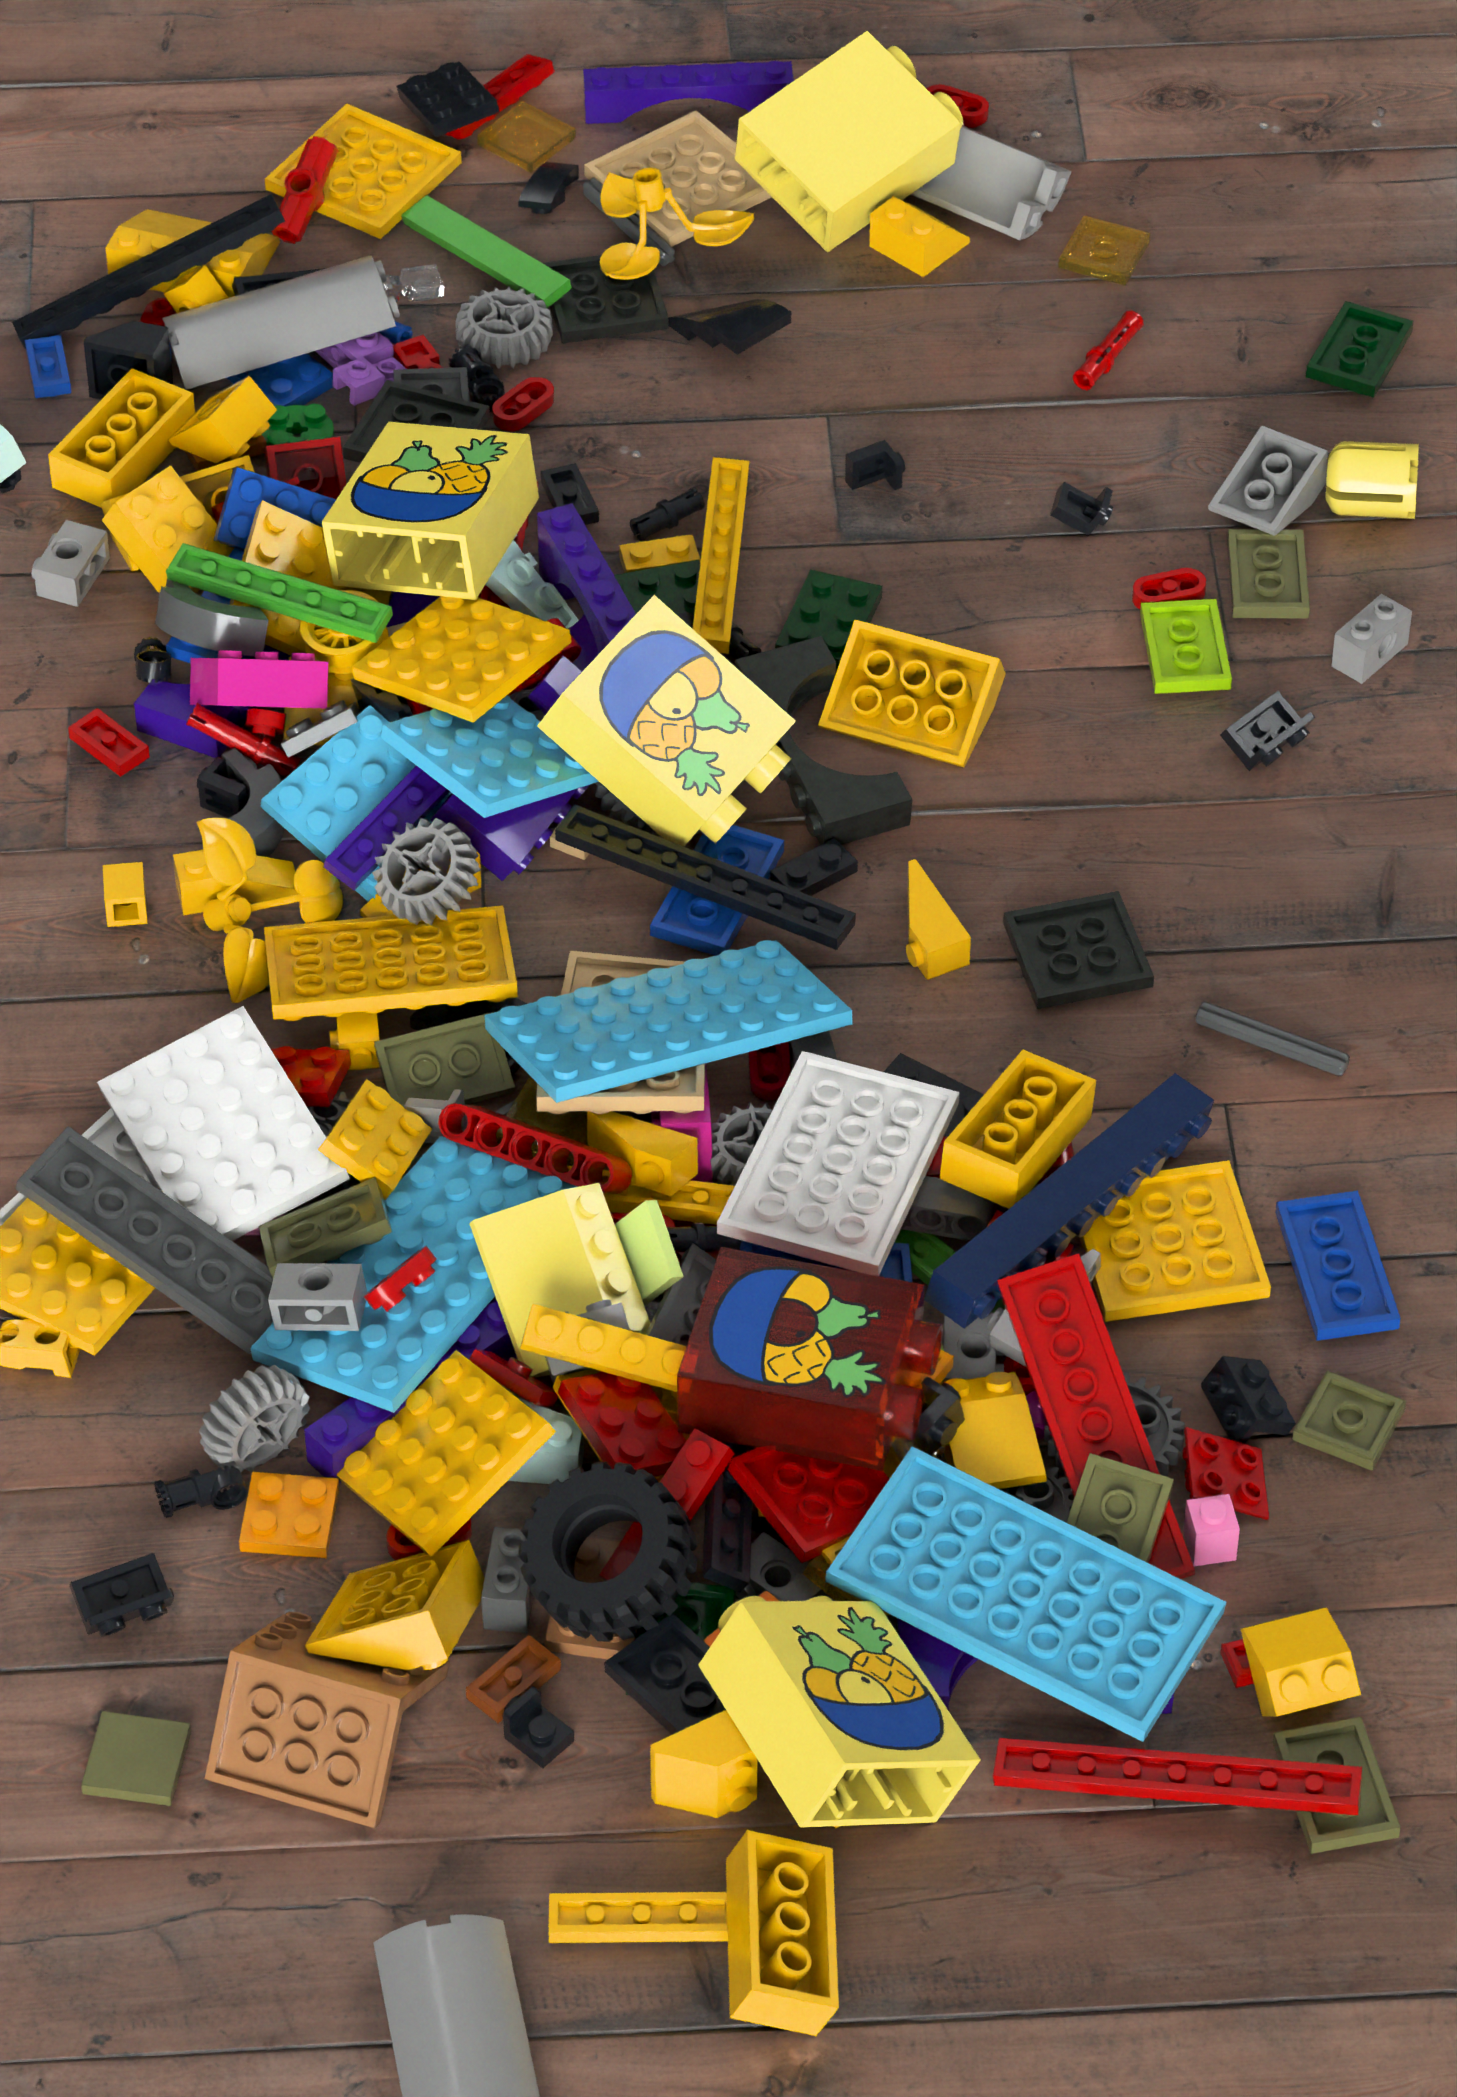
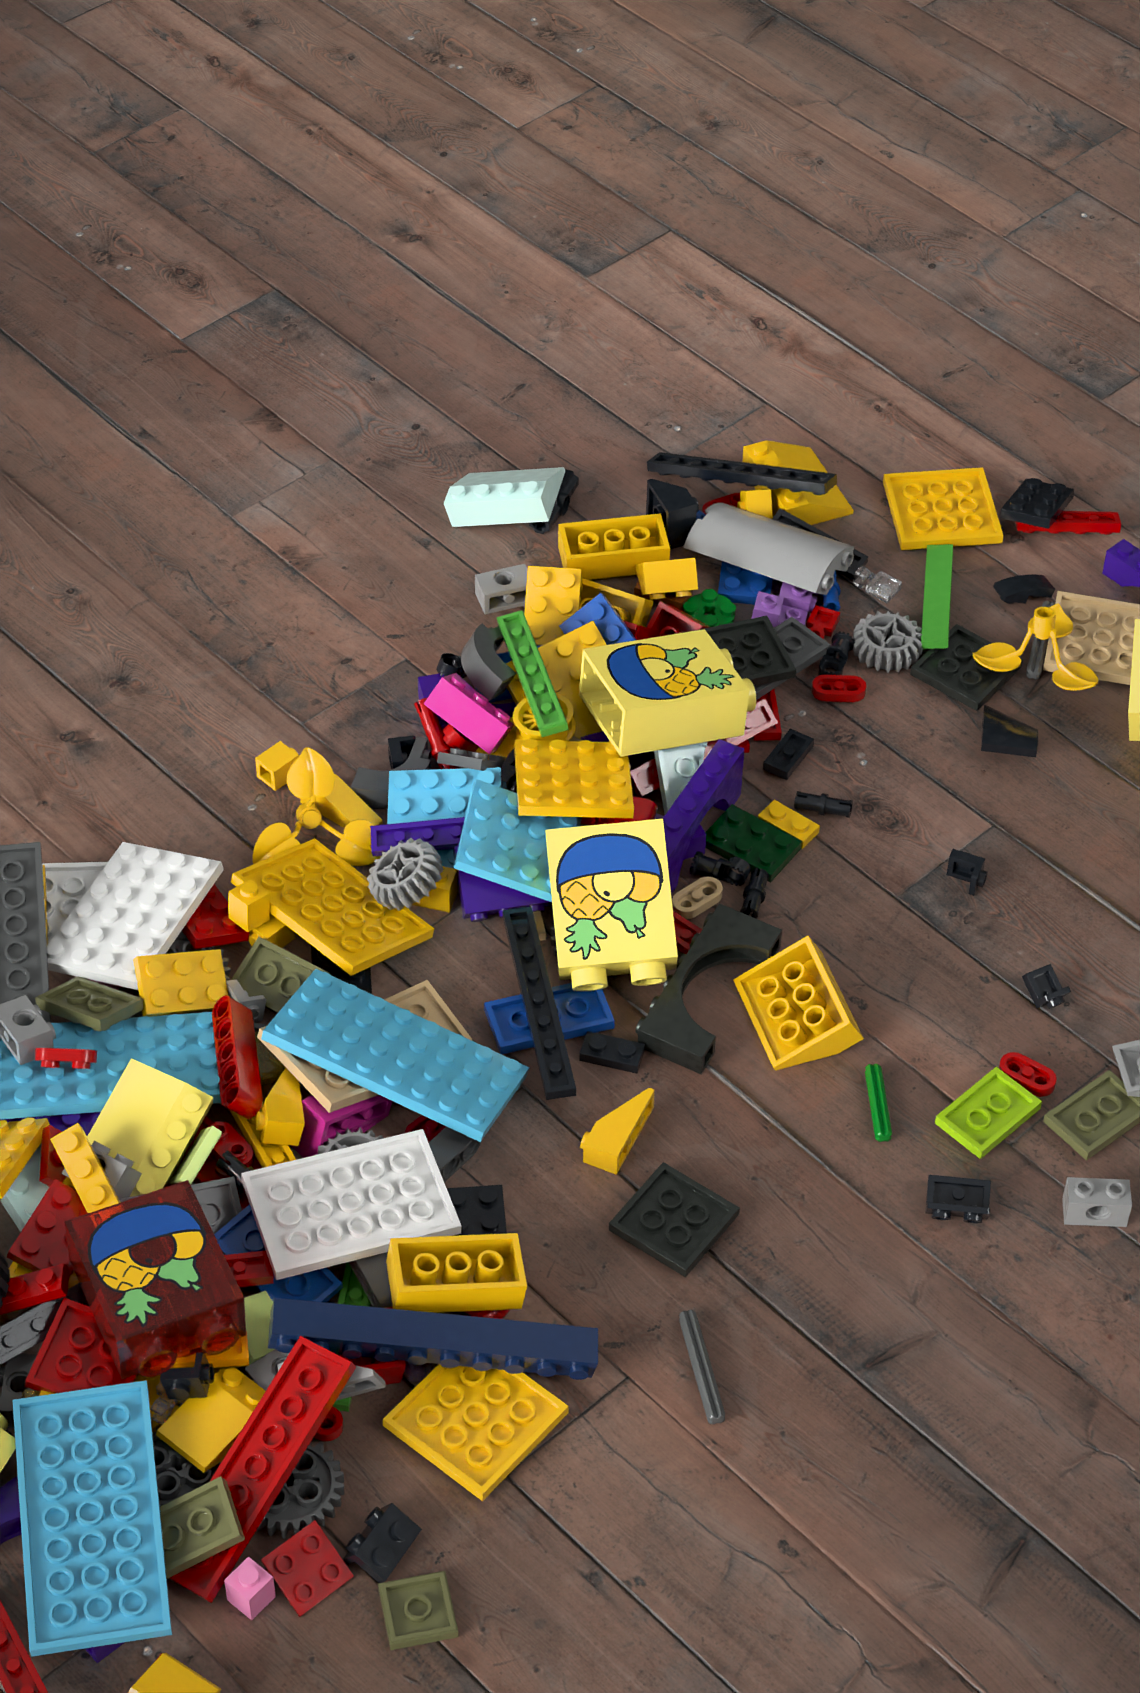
camera: 50 degrees right, 0 degrees up
(48, 366) = (635, 490): blue plate -> none
(109, 742) = (389, 688): red plate -> none
(311, 174) = (885, 492): red piece -> none
(331, 1019) = (249, 905): none -> yellow brick
(526, 136) = (1056, 554): clear yellow tile -> none
(721, 552) = (807, 846): yellow plate -> none
(828, 609) = (831, 925): dark green plate -> none
(1088, 716) = (878, 1102): none -> green axle
(1337, 1265) = (538, 1521): blue plate -> none

